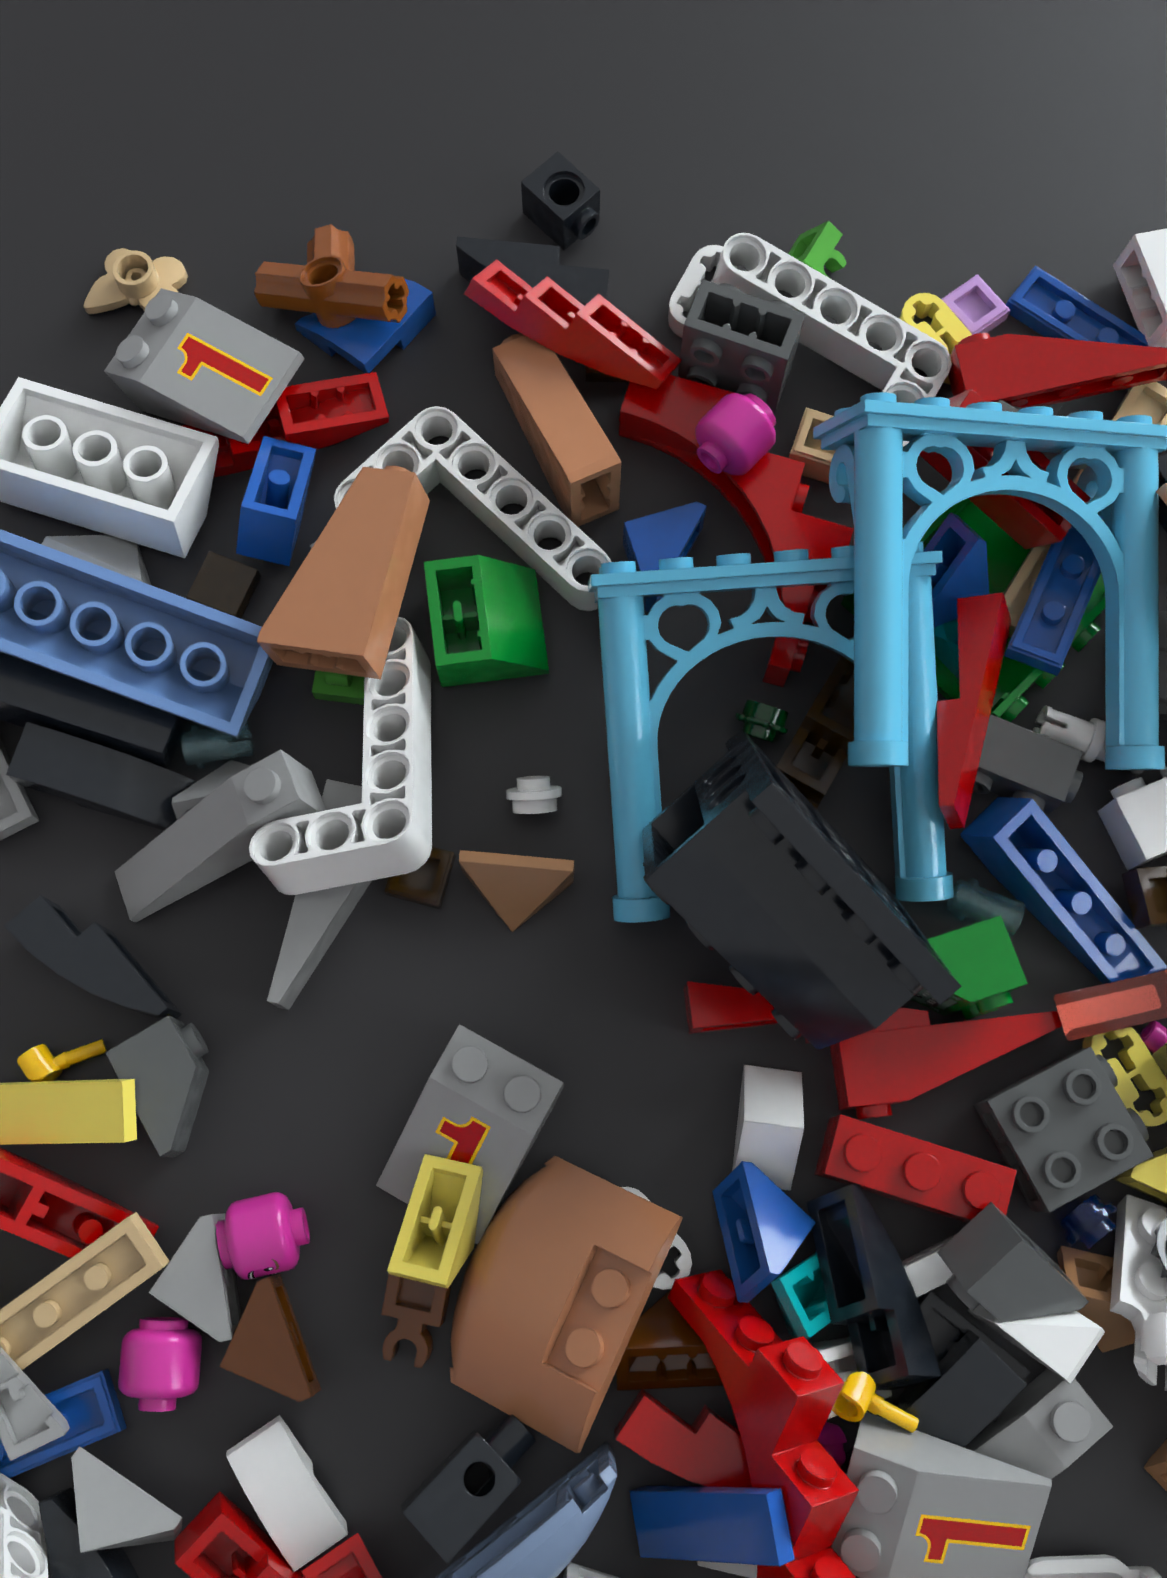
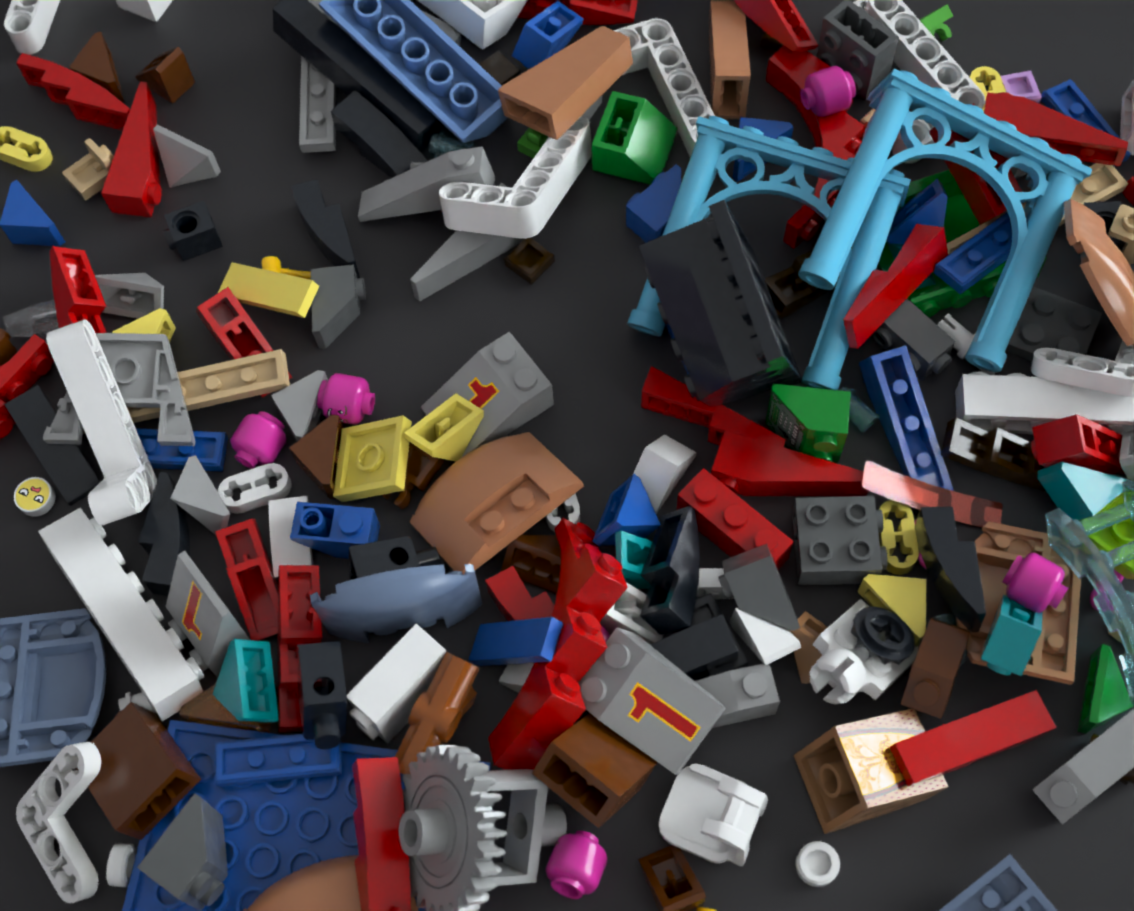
camera: 30 degrees right, 10 degrees down
(181, 1429) = (254, 488): none -> white beam
(352, 1317) = (372, 459): none -> light yellow plate
(352, 1460) = (334, 527): none -> blue slope
(516, 883) = (583, 283): medium nougat slope -> none
(534, 795) = (615, 242): white plate -> none
(572, 717) = (650, 210): none -> blue slope
(762, 720) = (770, 257): dark green plate -> none
(859, 1396) = (637, 612): yellow hand -> none
(1089, 1222) = (827, 601): clear blue plate -> none

